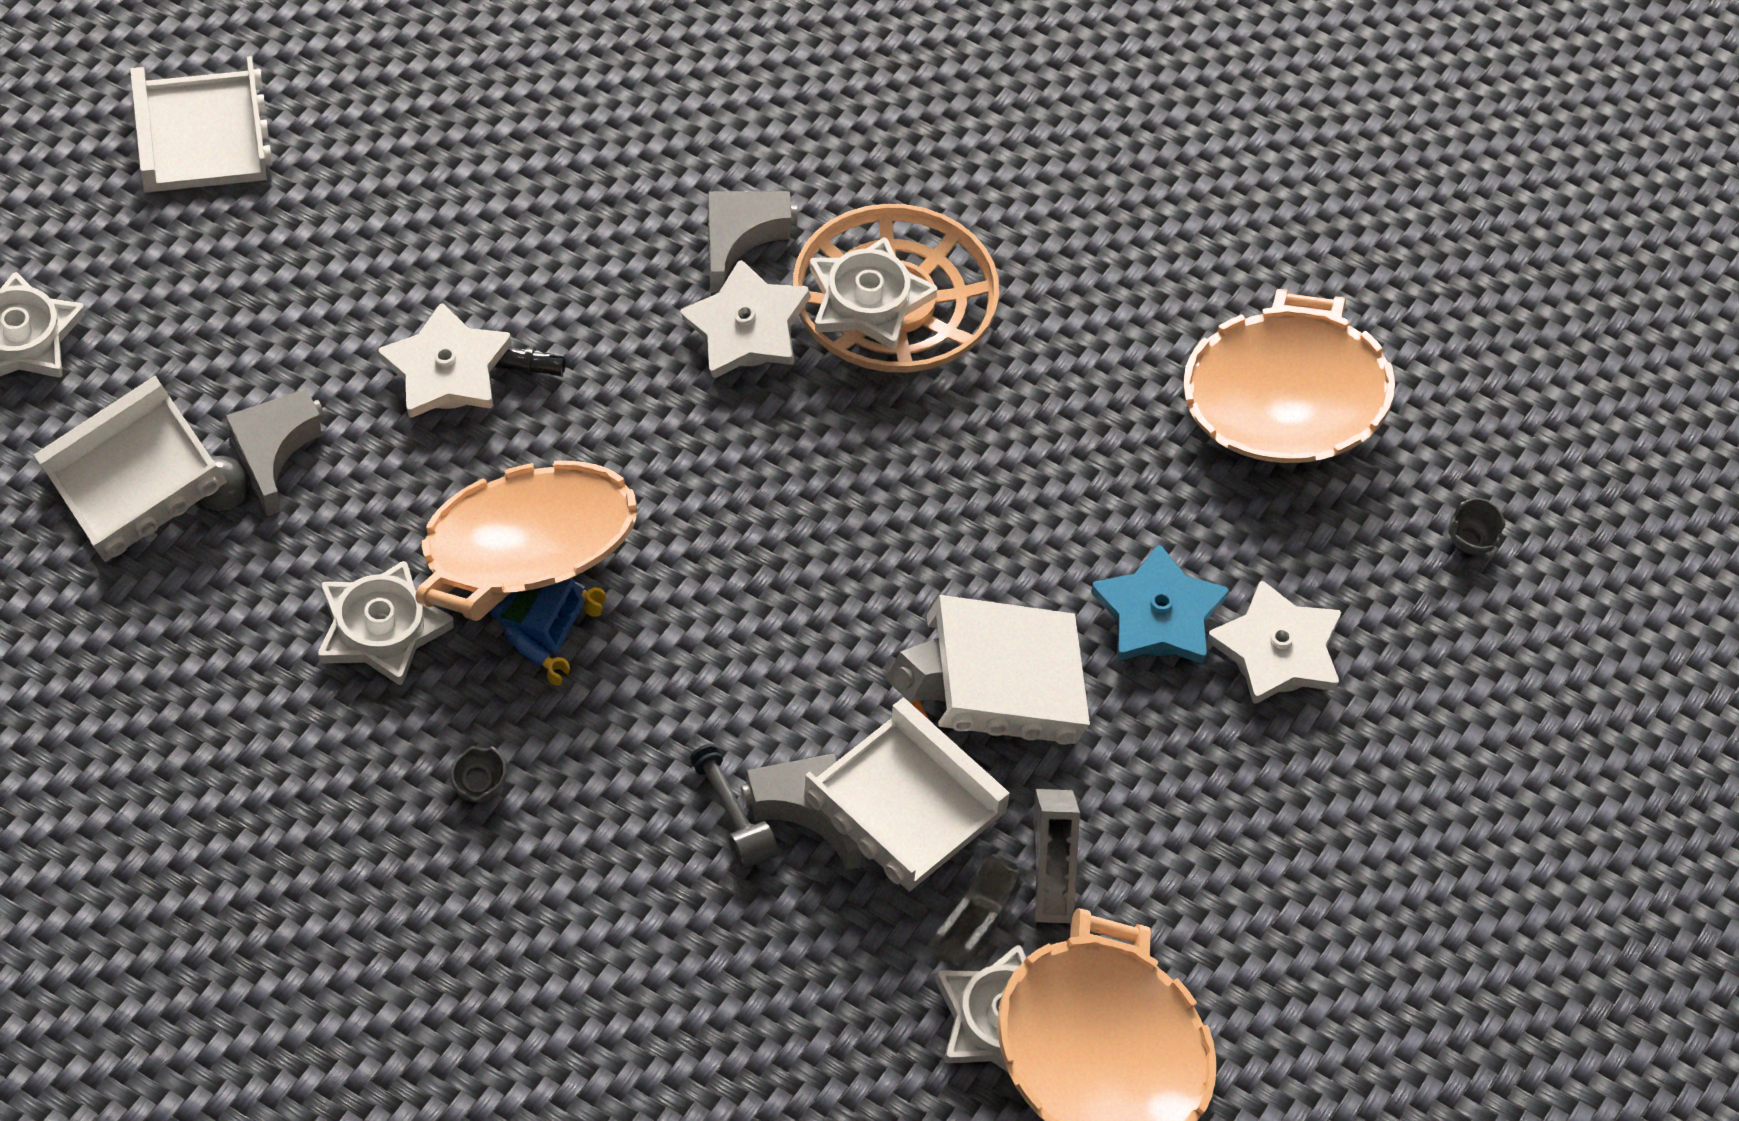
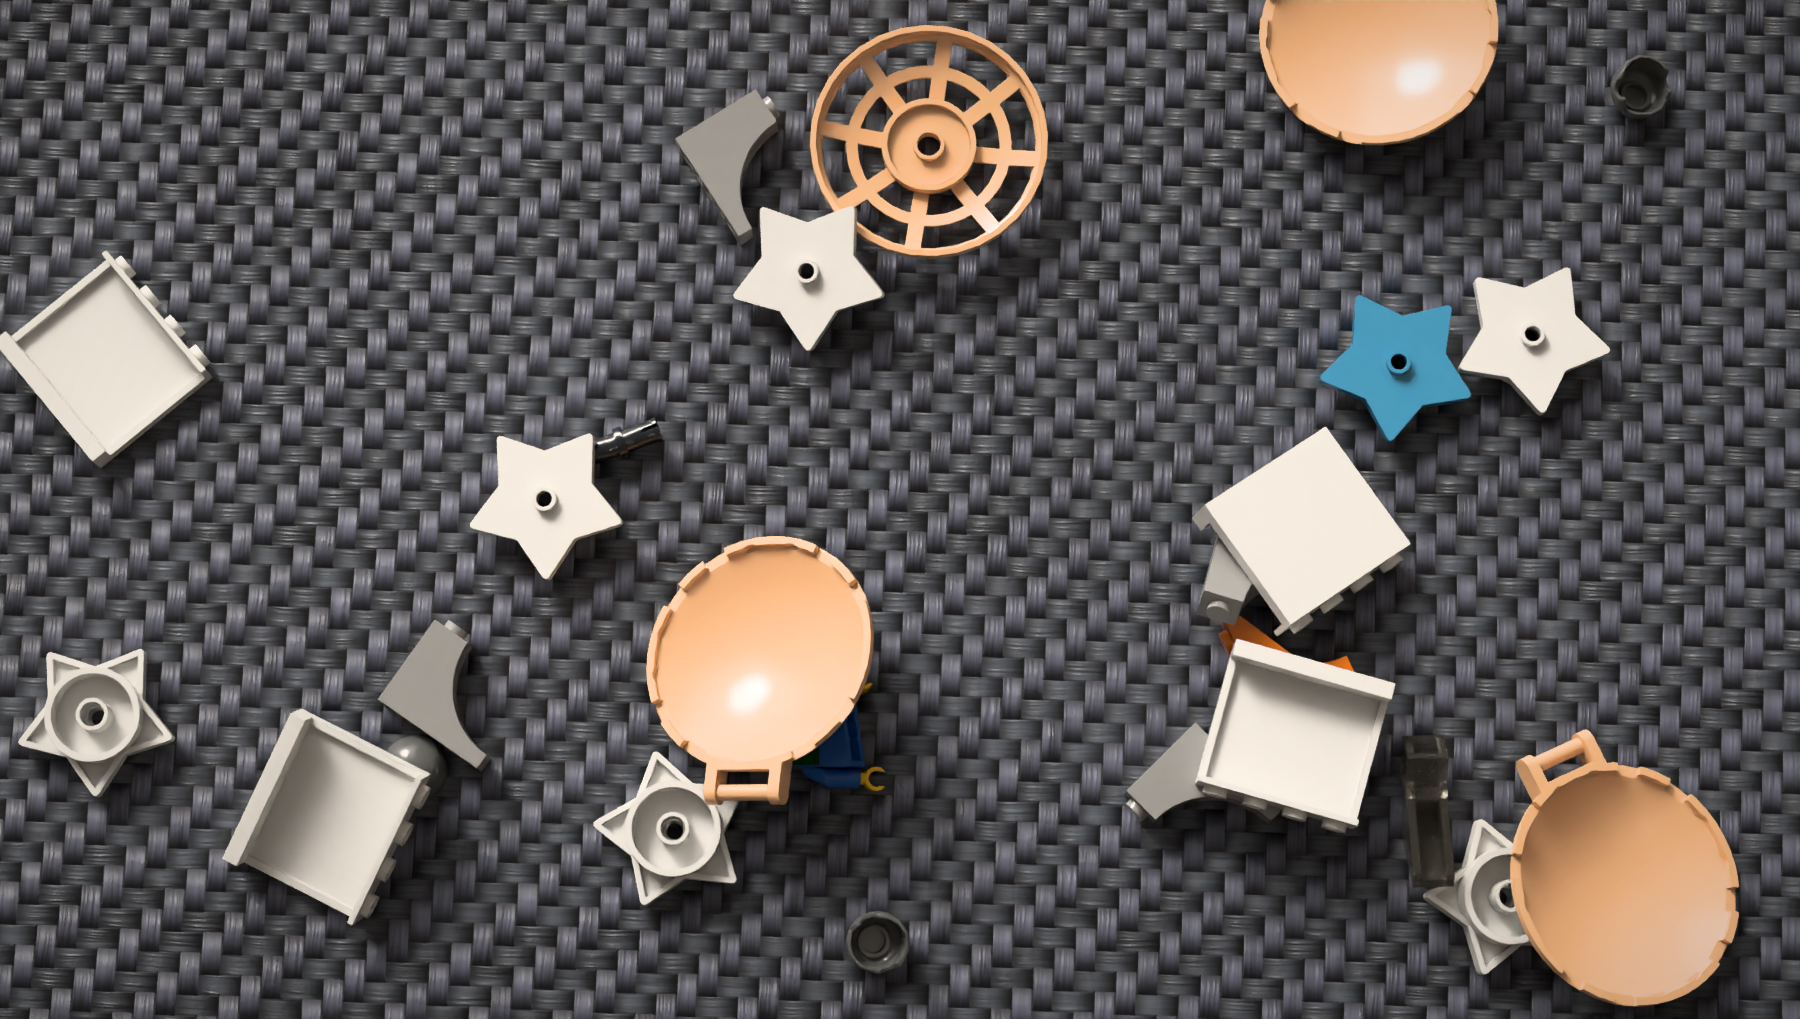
camera: 25 degrees left, 25 degrees up
(750, 842) = (1171, 859): dark grey piece -> none
(868, 293) = (909, 147): white plate -> none
(1056, 854) = (1457, 696): light grey arch -> none

